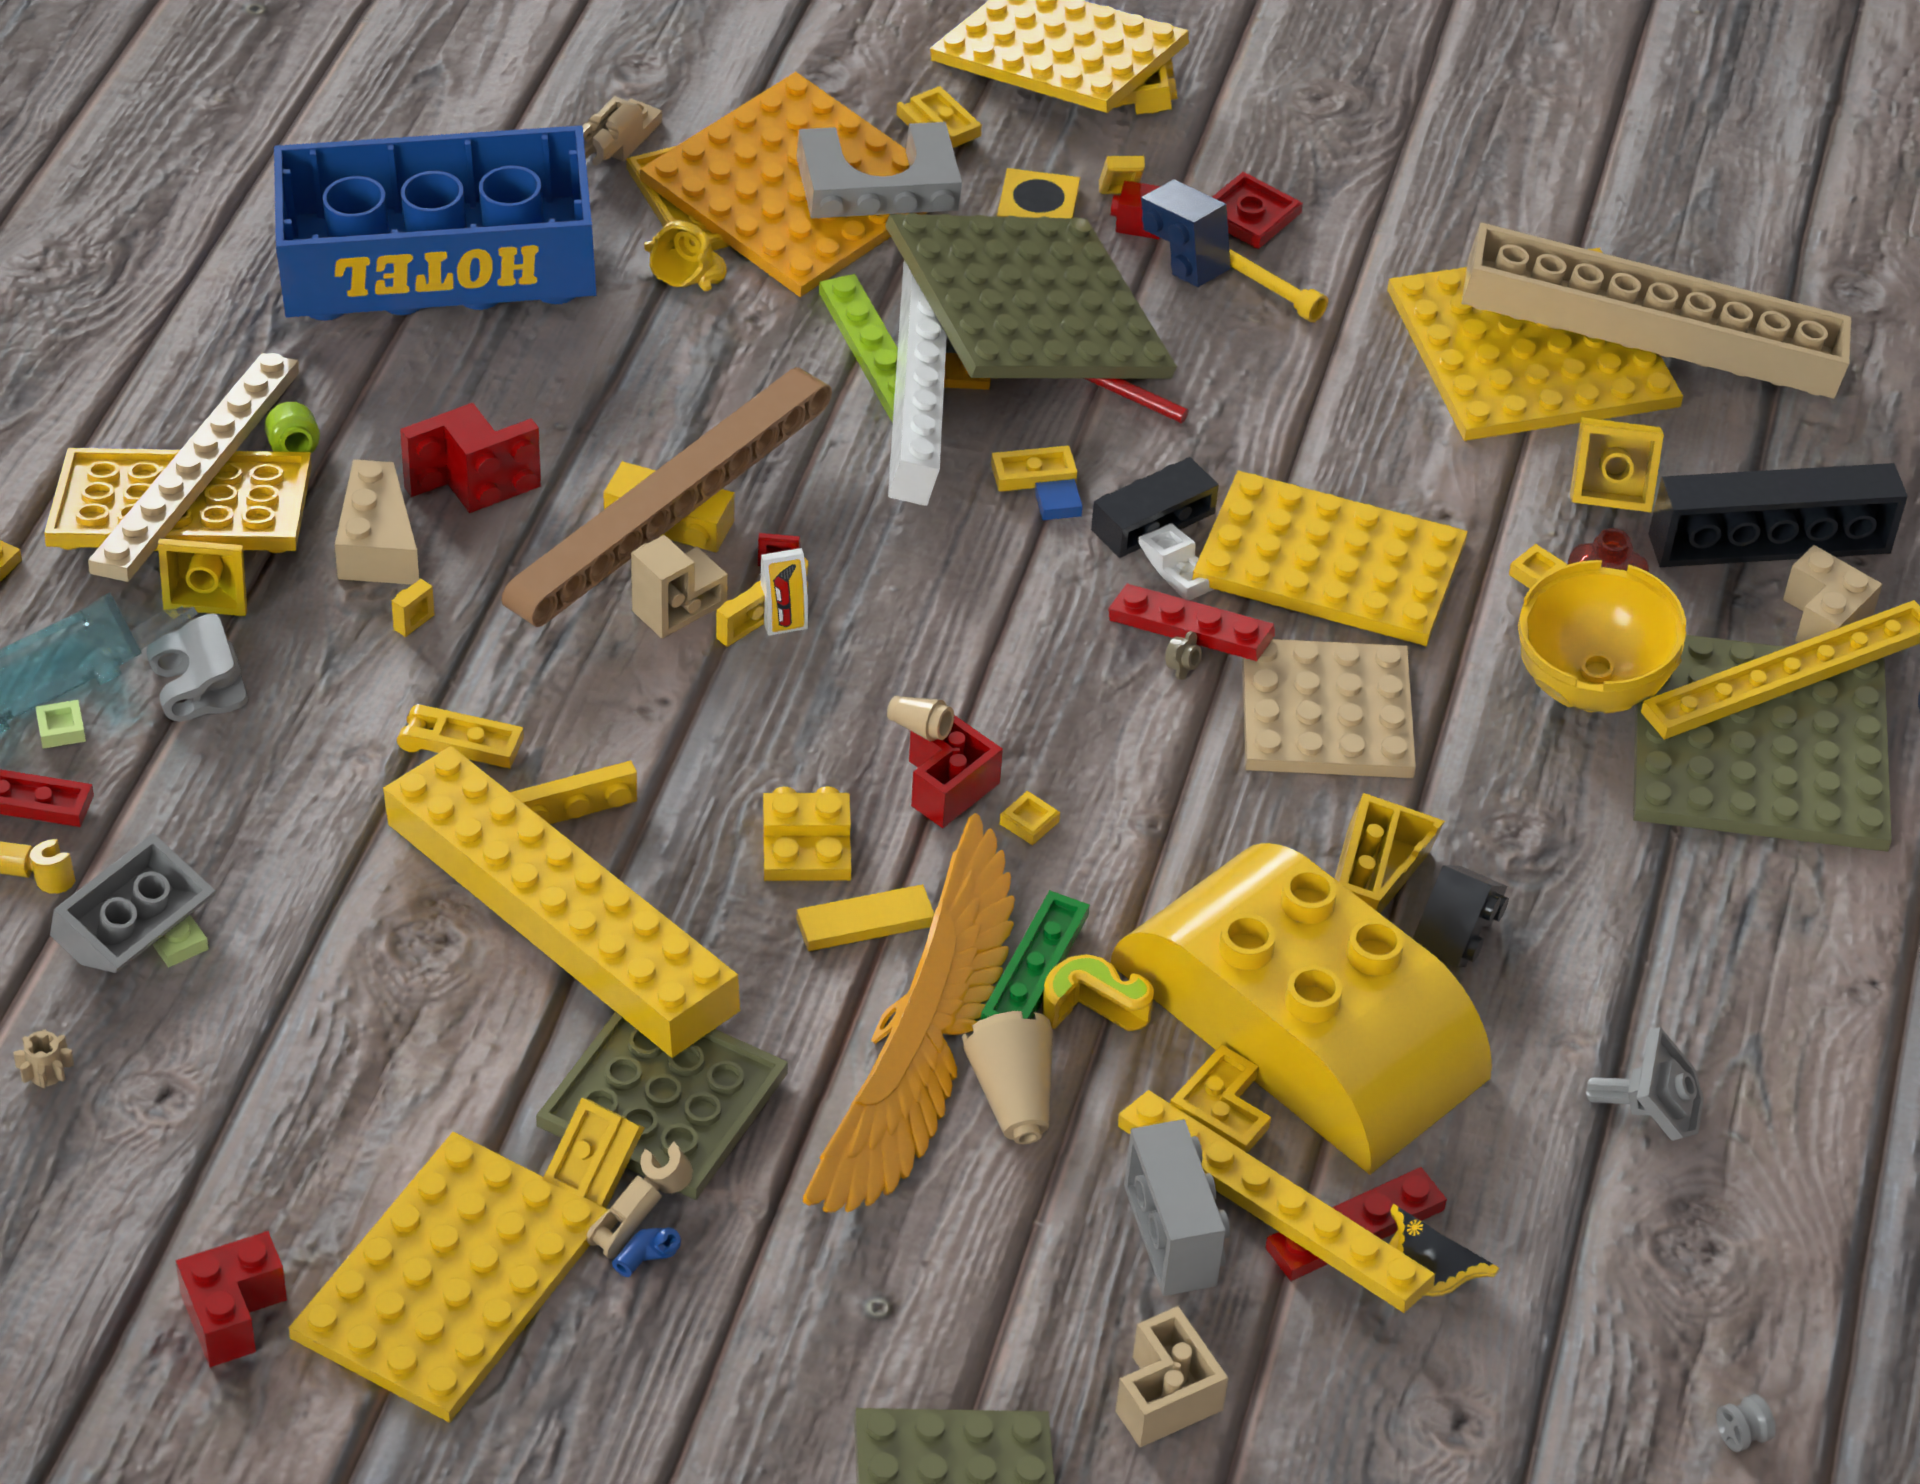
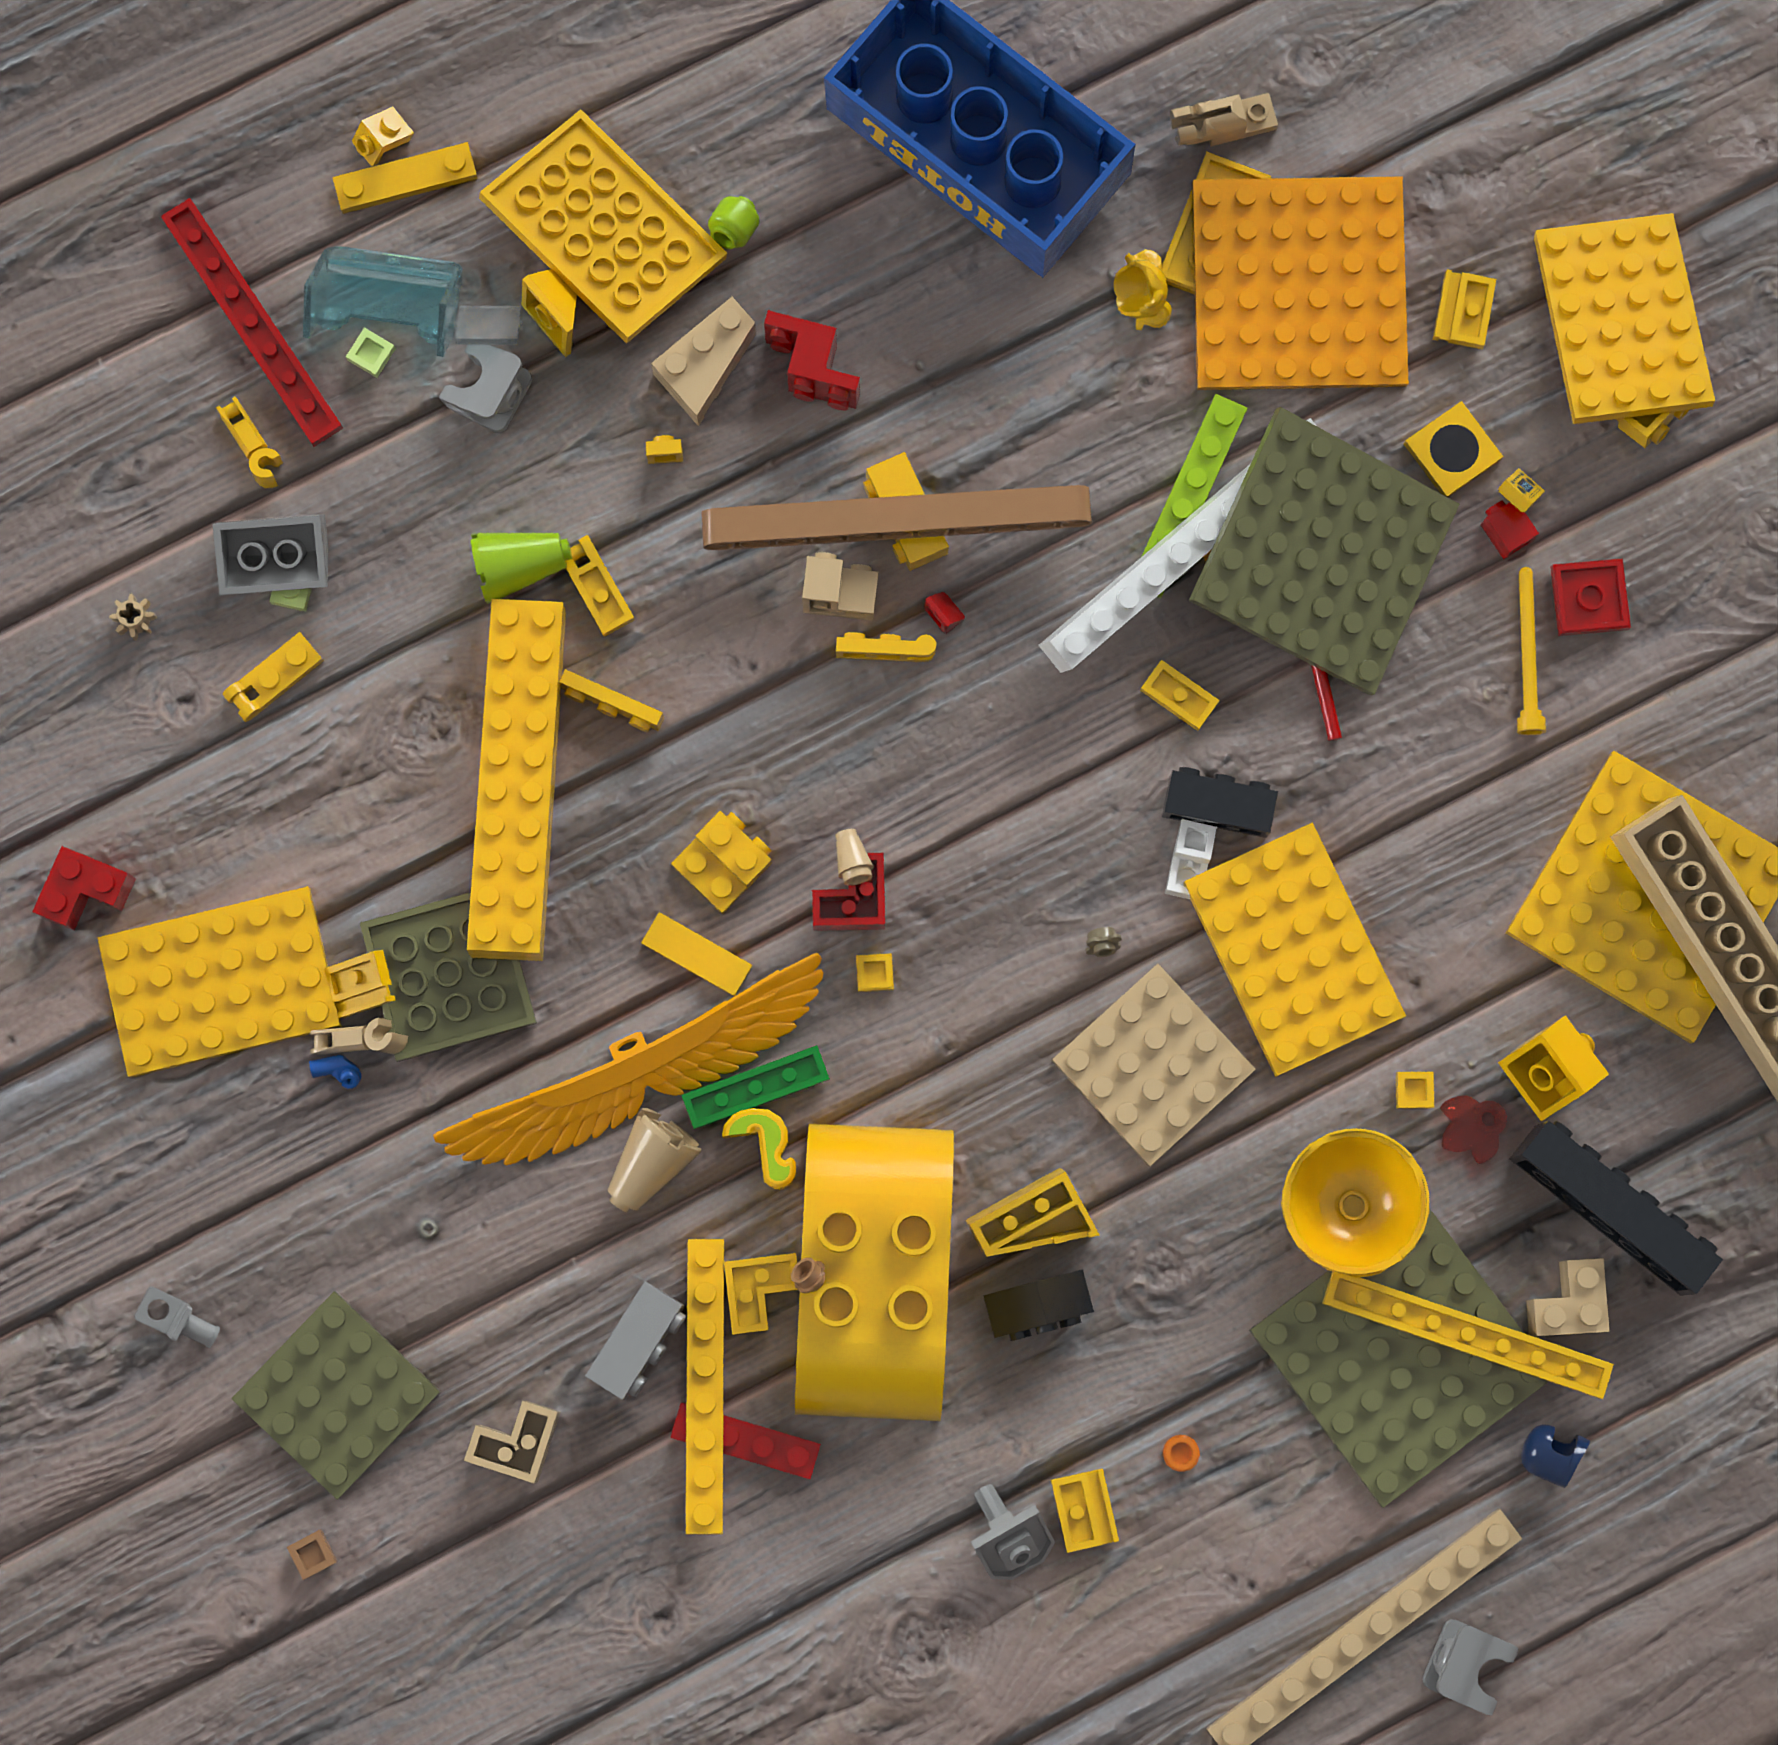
camera: 45 degrees right, 35 degrees up
(193, 468) = (632, 209): tan plate -> none
(234, 1009) = (273, 676): none -> yellow plate
(368, 755) = (516, 560): none -> lime cone
(784, 591) = (893, 662): slope -> none
(842, 191) = (1298, 330): light grey arch -> none
(1058, 499) = (1170, 734): blue tile -> none
(1177, 616) = (1135, 921): red plate -> none
(1193, 226) = (1505, 589): dark blue brick -> none
(1265, 987) = (808, 1275): none -> medium nougat plate
(1437, 1253) = (753, 1510): black hat -> none
(1695, 1030) = (1084, 1510): none -> yellow plate
(1699, 937) = (1180, 1453): none -> orange tile

